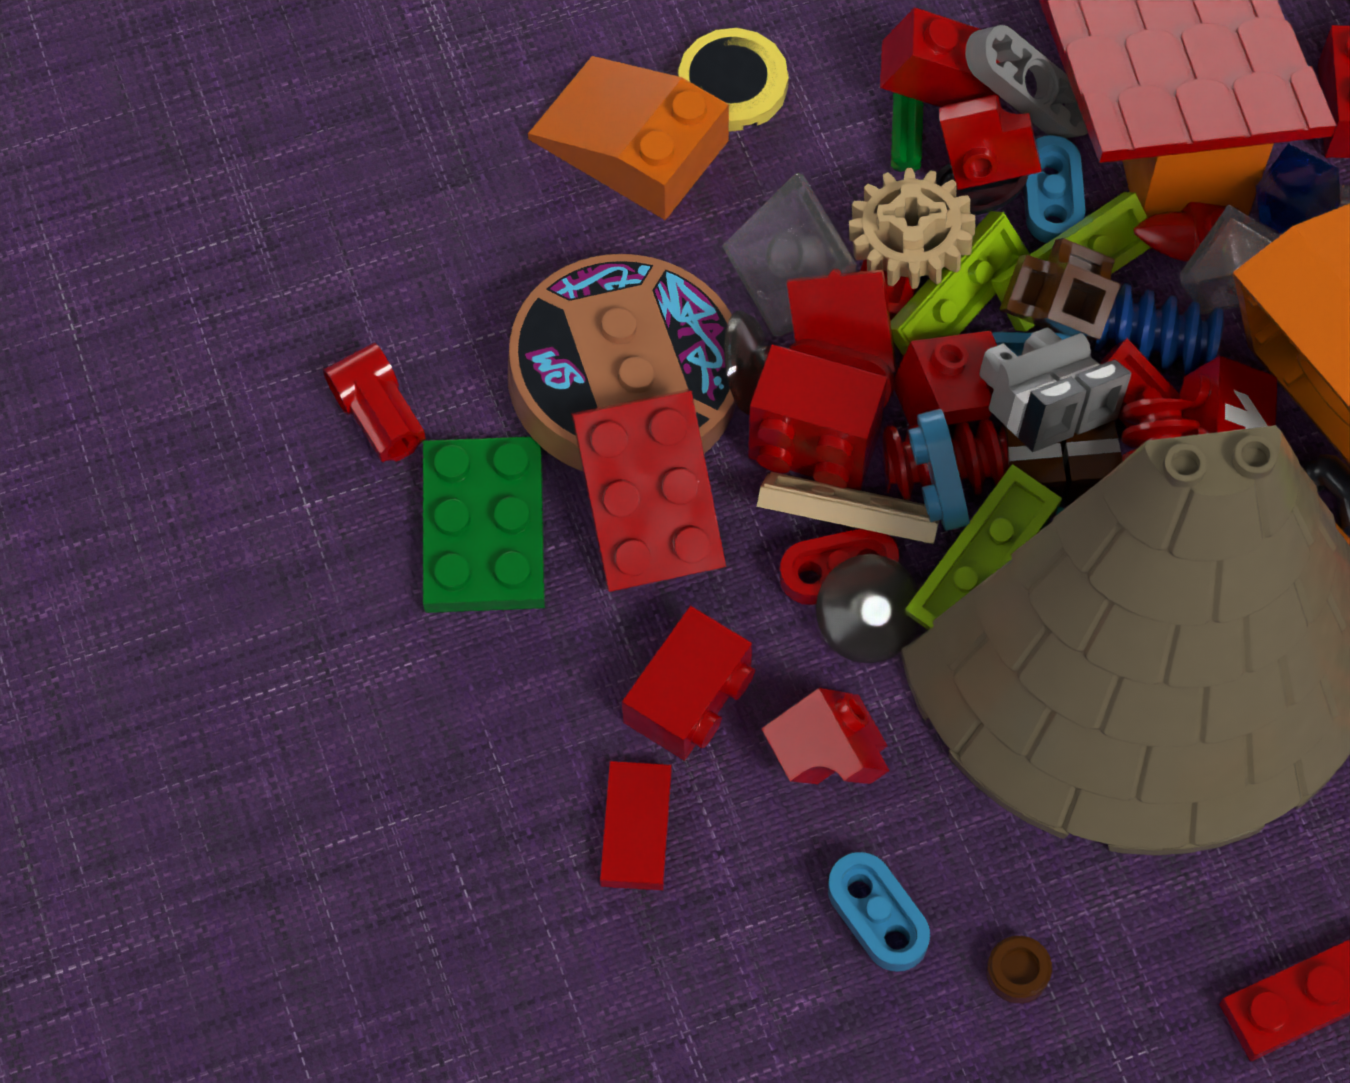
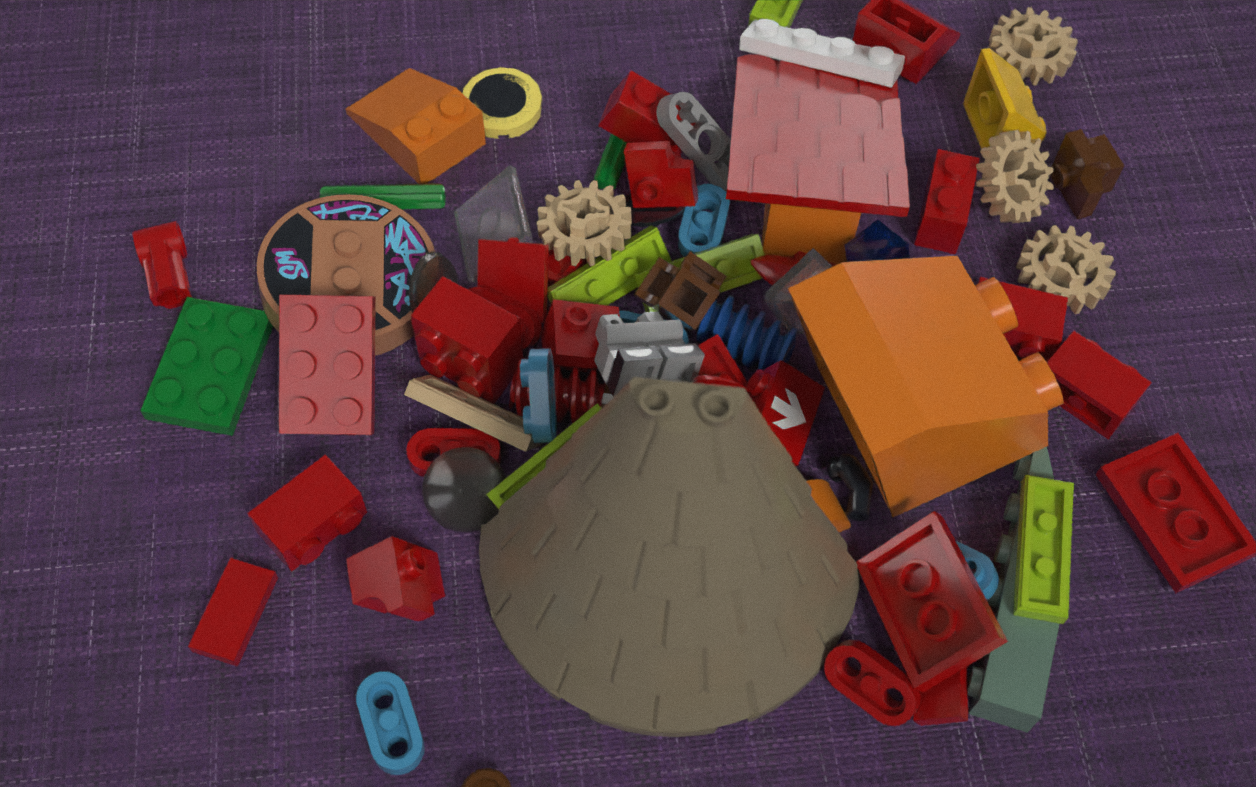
camera: 10 degrees right, 5 degrees down
(645, 240) = (401, 195): none -> green axle

